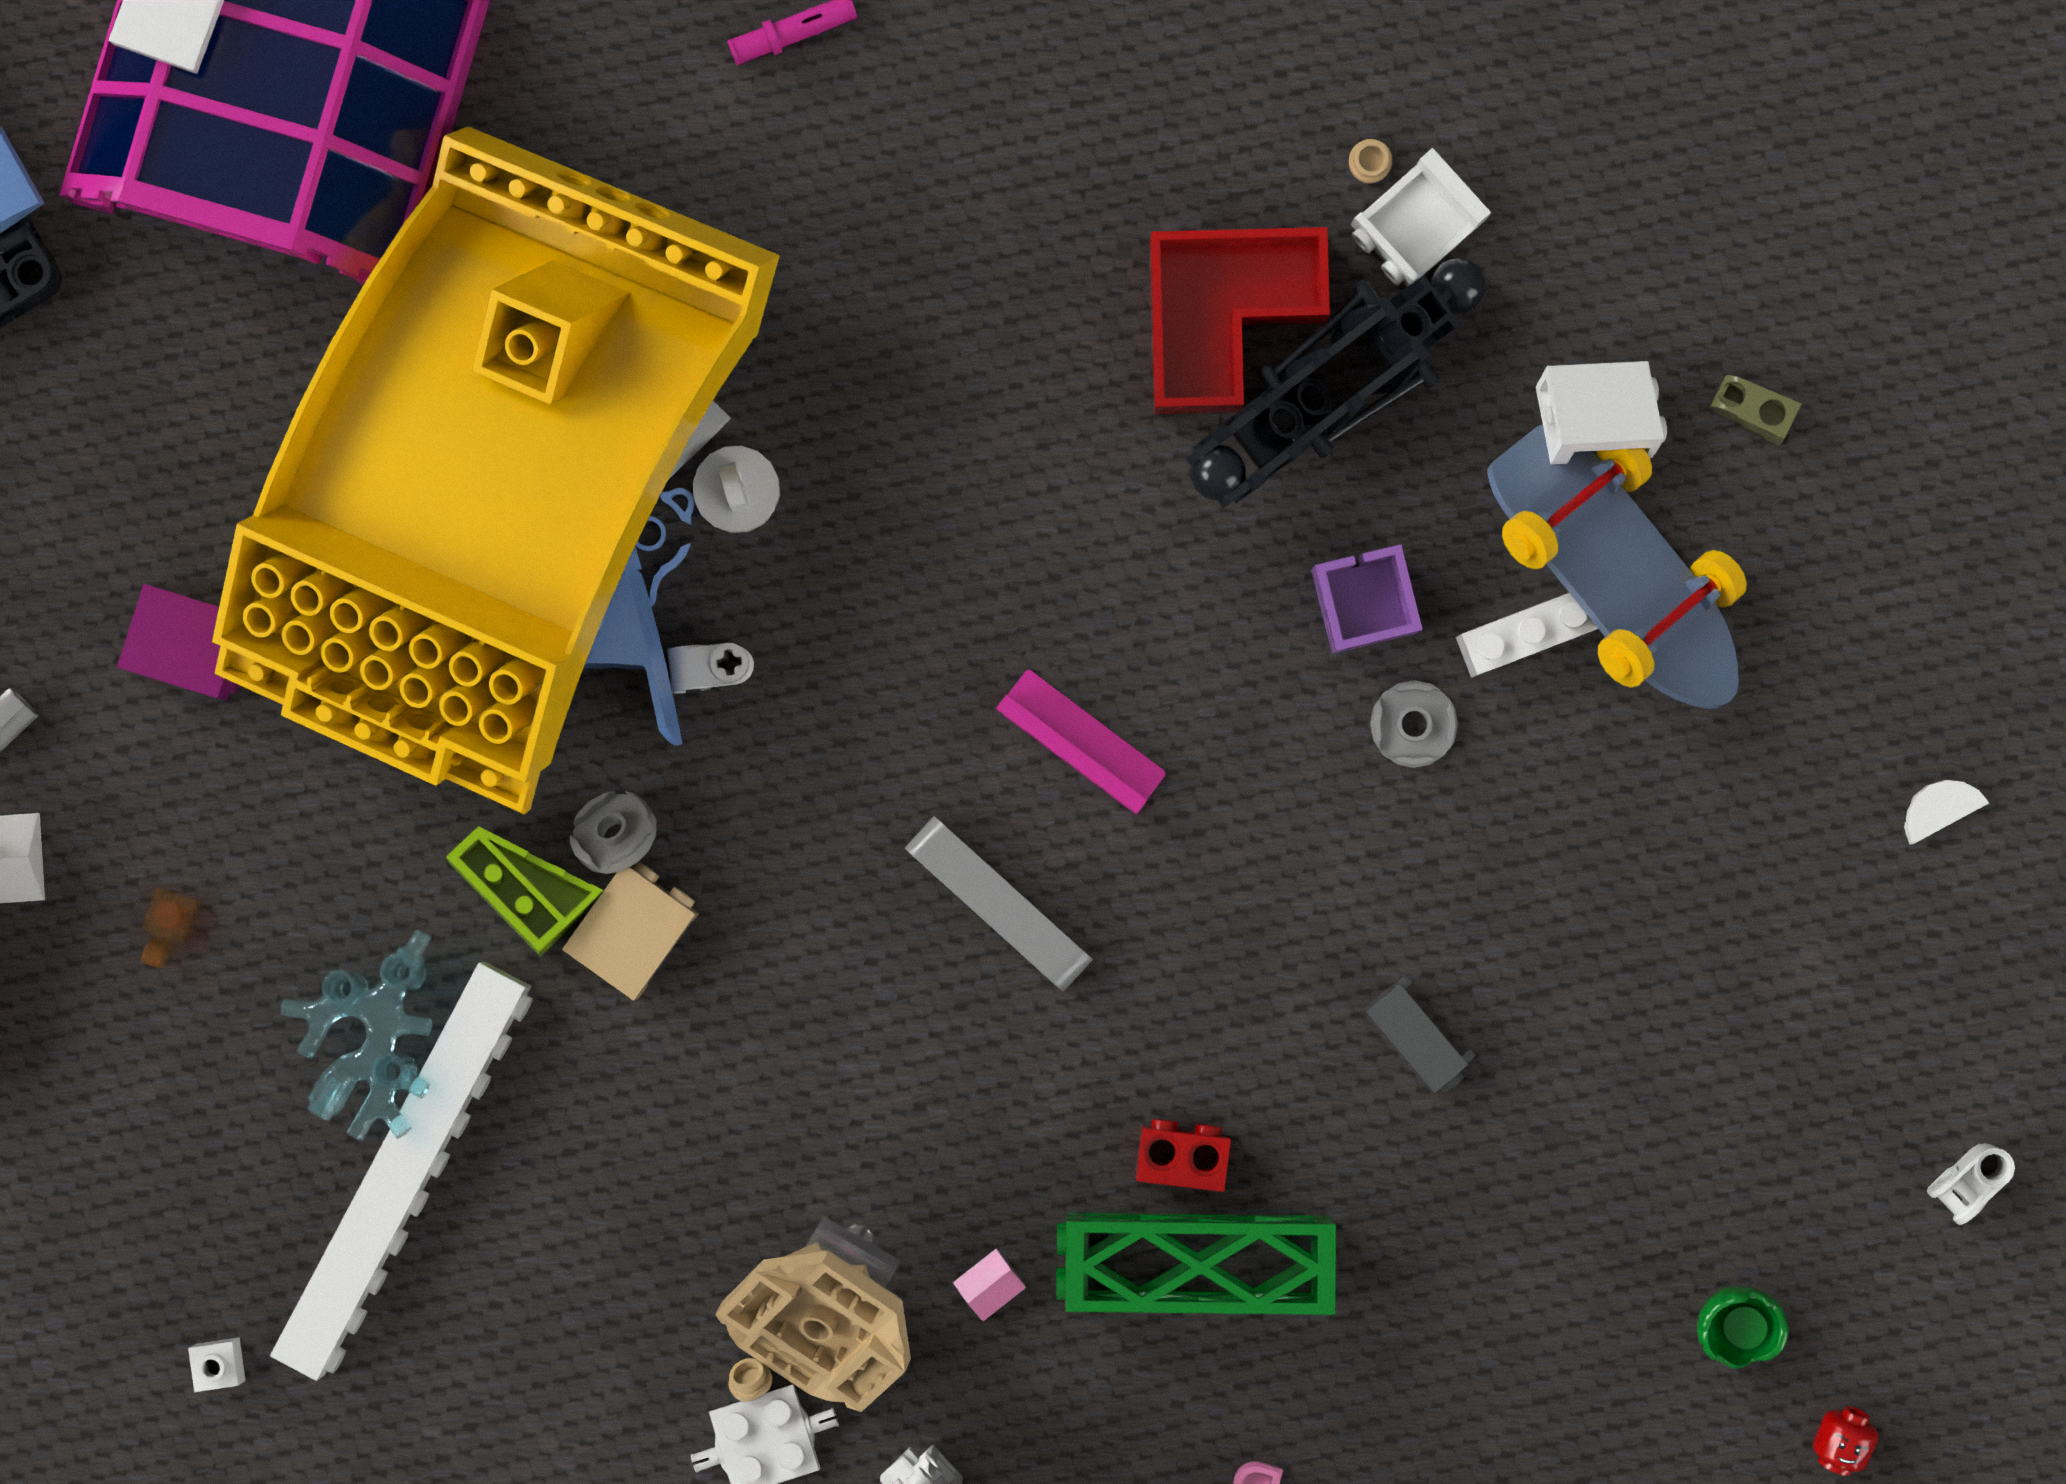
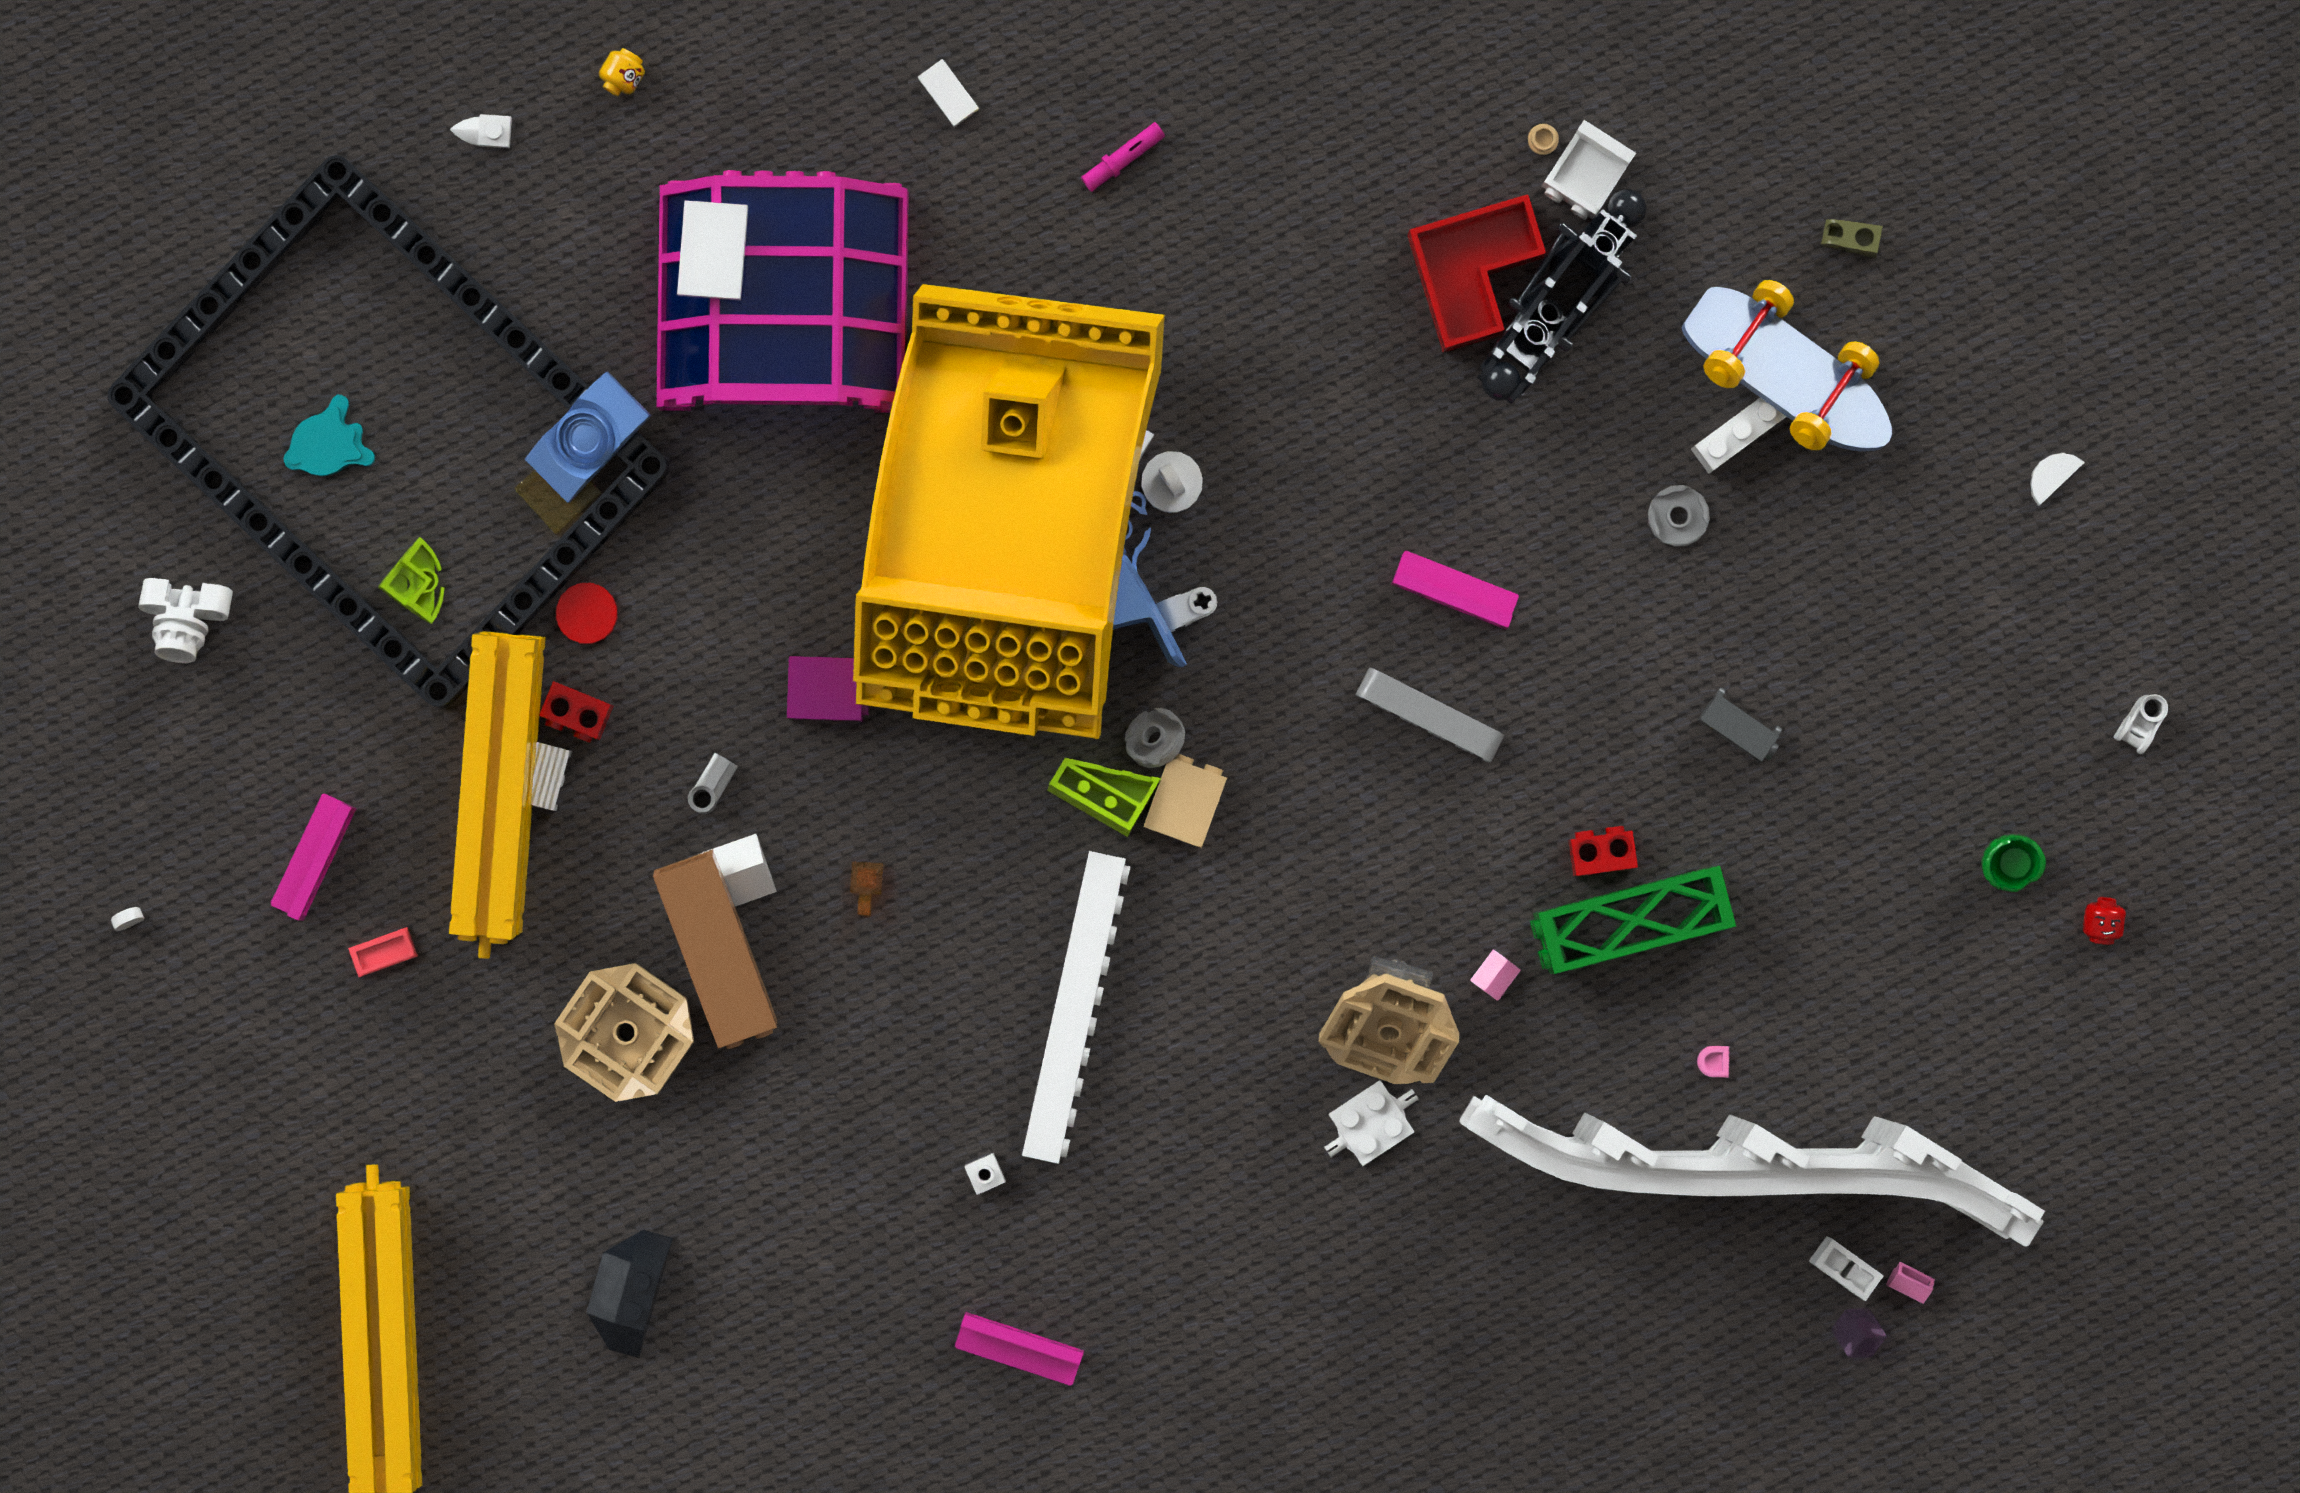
camera: 15 degrees left, 0 degrees up
(375, 1061) = (1036, 908): clear light blue plant -> none
(749, 1379) = (1350, 1084): tan plate -> none
(1366, 601) = (1624, 440): medium lavender piece -> none
(1599, 409) = (1746, 267): white panel -> none

